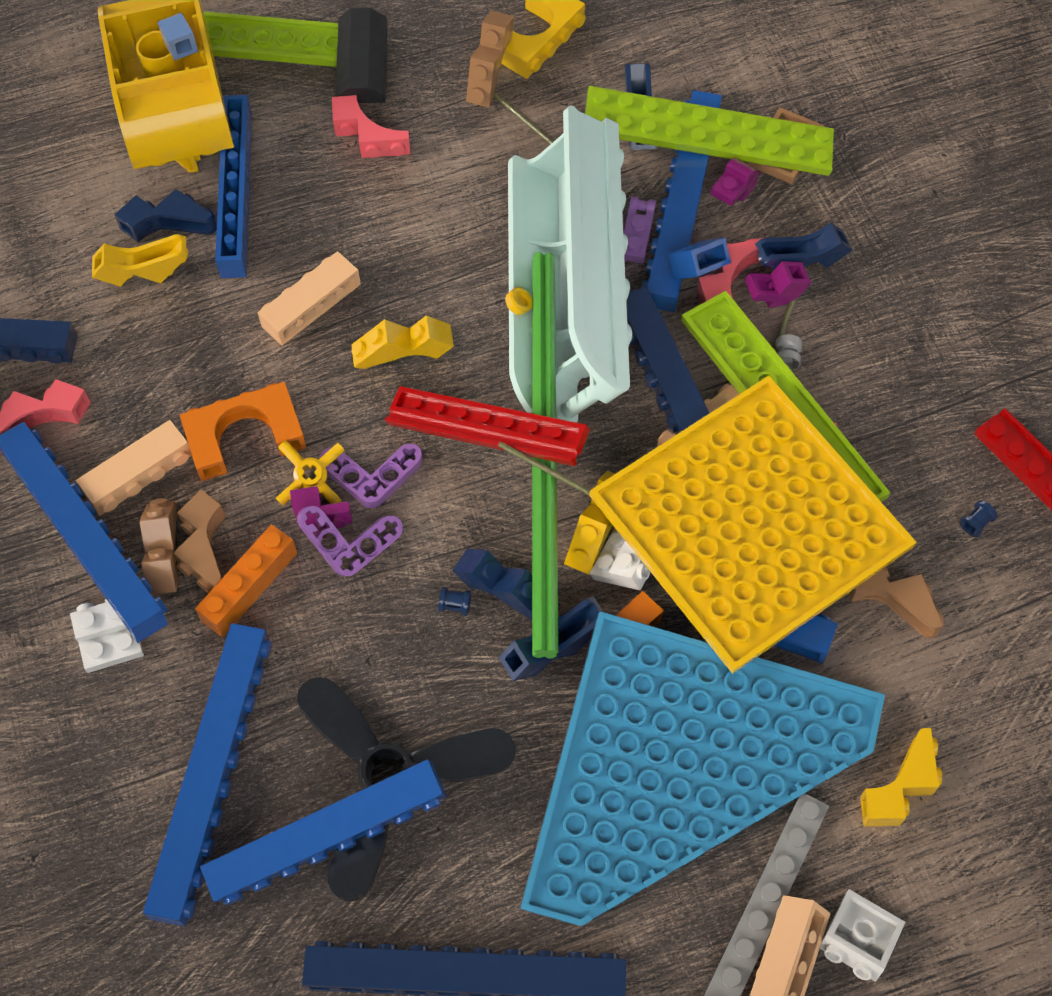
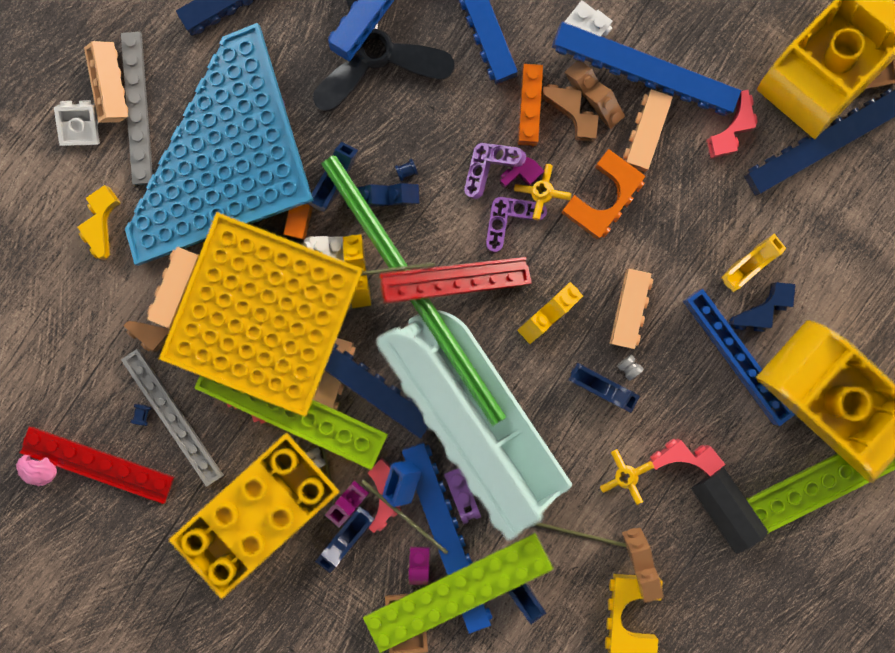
camera: 150 degrees right, 25 degrees up
(177, 36) = (841, 412): medium blue brick -> none
(357, 243) = (630, 368): none -> light grey wheel
(405, 240) = (603, 388): none -> dark blue arch
(441, 137) = (621, 473): none -> yellow bar
(519, 301) = (492, 377): yellow tile -> none
(718, 231) = (405, 518): none -> olive axle
(846, 623) = (173, 287): none -> light nougat brick
(897, 323) = (254, 515): none -> yellow brick
(939, 497) = (172, 417): none -> light grey plate

